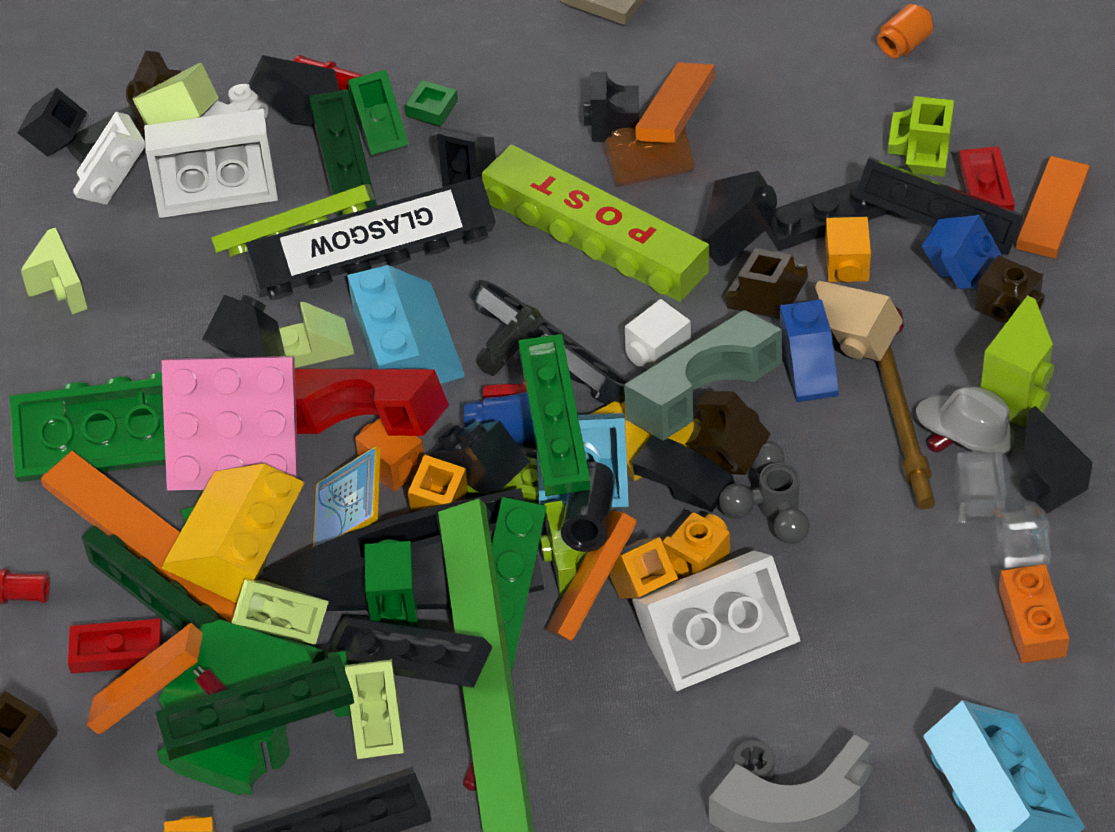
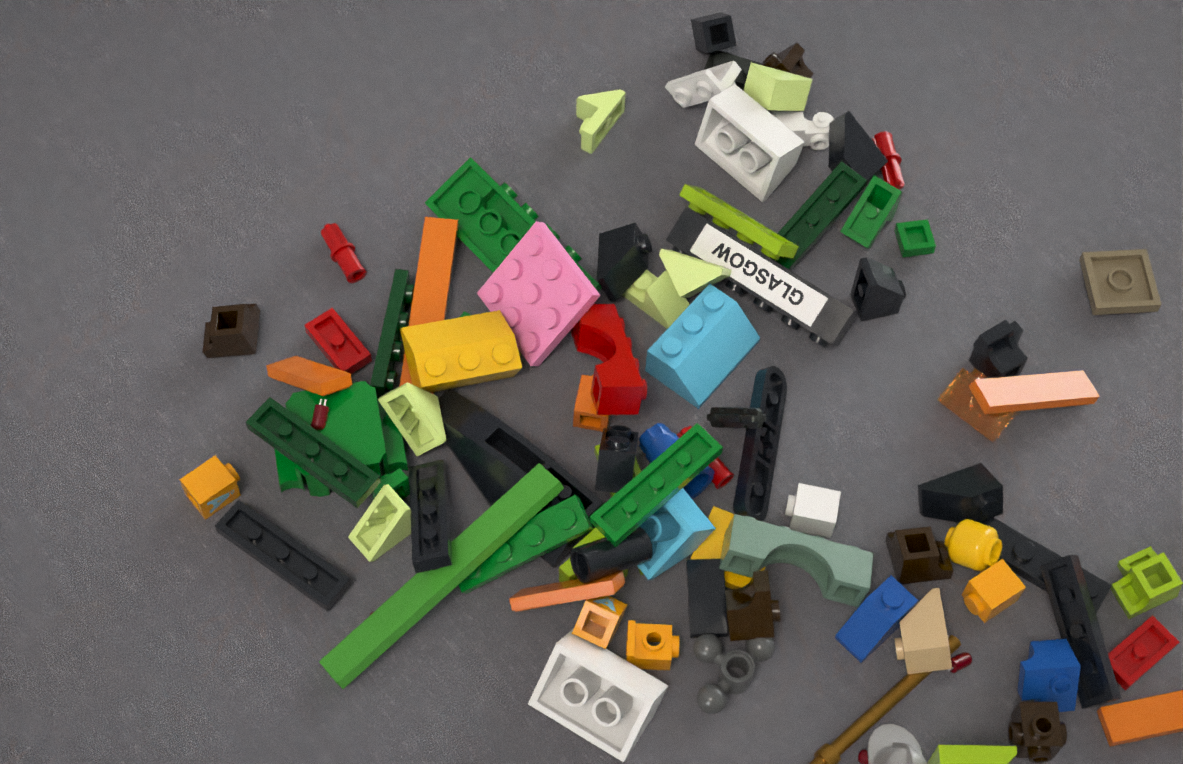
camera: 50 degrees right, 10 degrees up
(321, 284) = (690, 273): none -> yellowish green slope
(347, 498) = (532, 403): piece -> none
(391, 583) = (472, 471): green slope -> none
(437, 484) = (575, 451): light orange brick -> none
(596, 223) = (886, 410): lime brick -> none
(794, 231) = (973, 545): none -> yellow head

